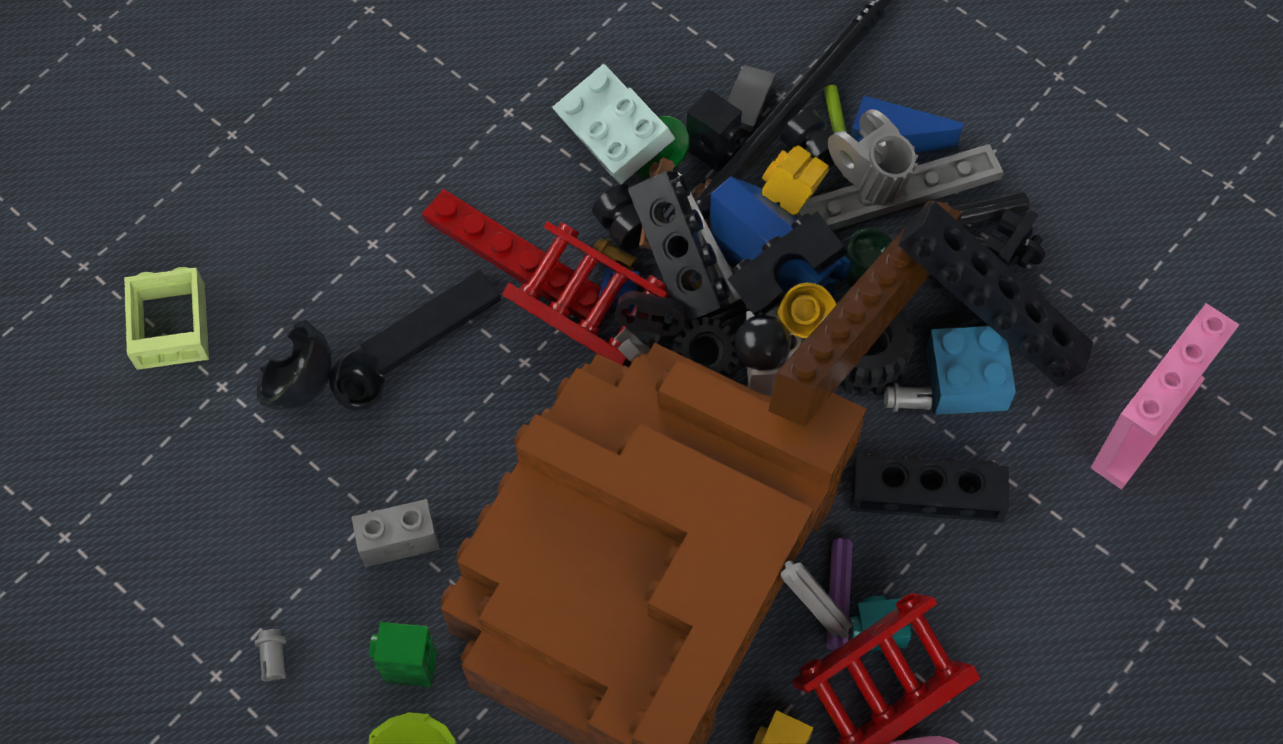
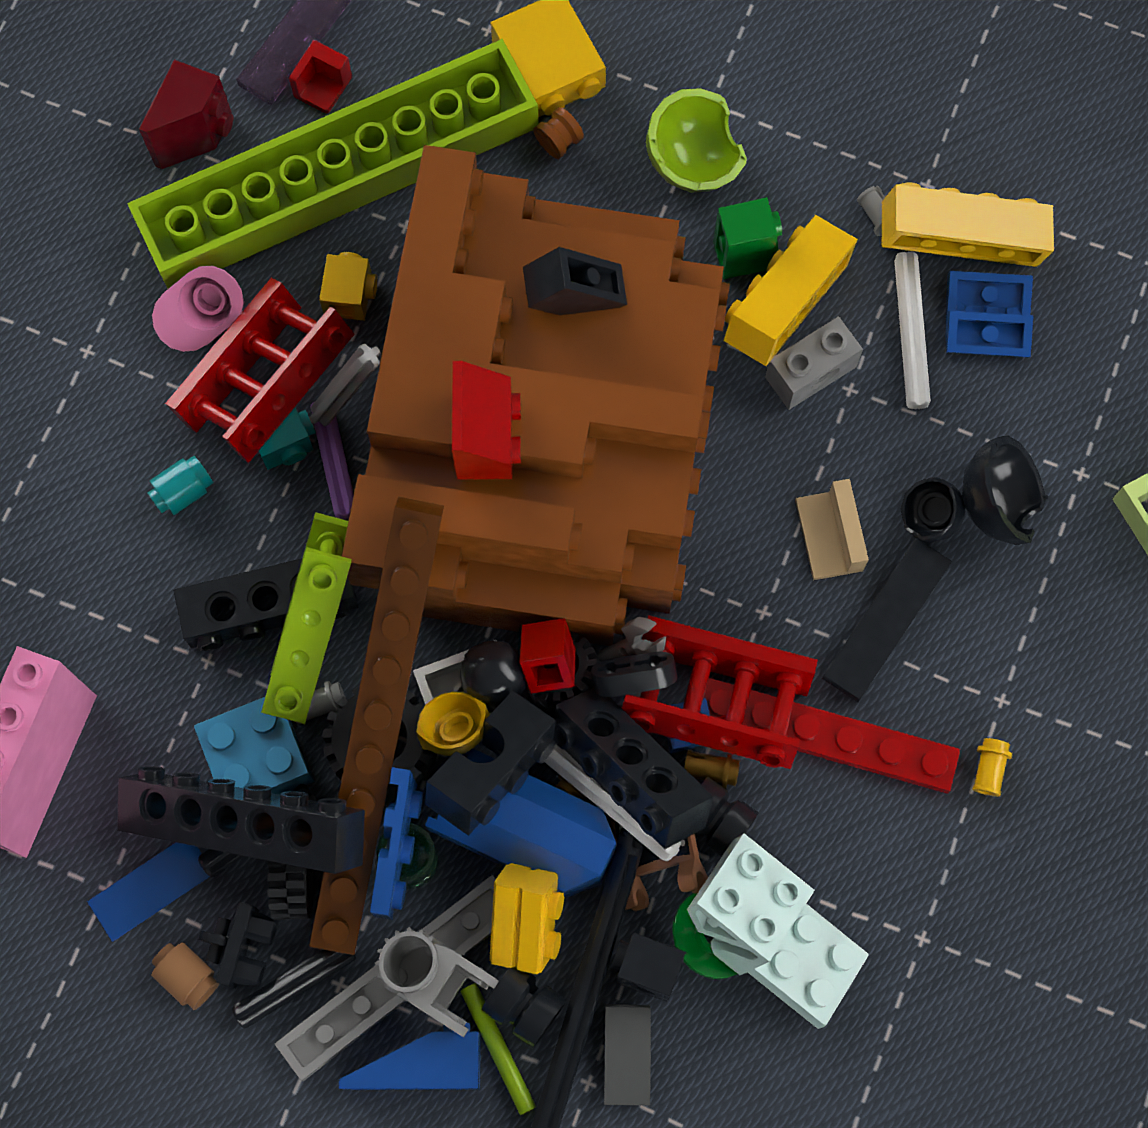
camera: 160 degrees right, 10 degrees up
(206, 603) = (967, 225): none -> yellow brick
(226, 535) = (989, 314): none -> blue slope
(296, 544) = (912, 330): none -> white axle
(387, 591) = (788, 289): none -> yellow brick
(400, 201) = (991, 766): none -> yellow pin
(442, 399) = (832, 532): none -> tan panel
(586, 593) = (573, 283): none -> black slope
(713, 459) = (483, 423): none -> red slope
(714, 341) = (547, 655): none -> red brick
(880, 235) = (388, 889): none -> blue wing
(899, 423) = (308, 620): none -> lime fence
(982, 609) = (179, 485): none -> teal brick
(1061, 236) = (184, 975): none -> medium nougat brick
(1090, 307) = (148, 889): none -> blue sticker

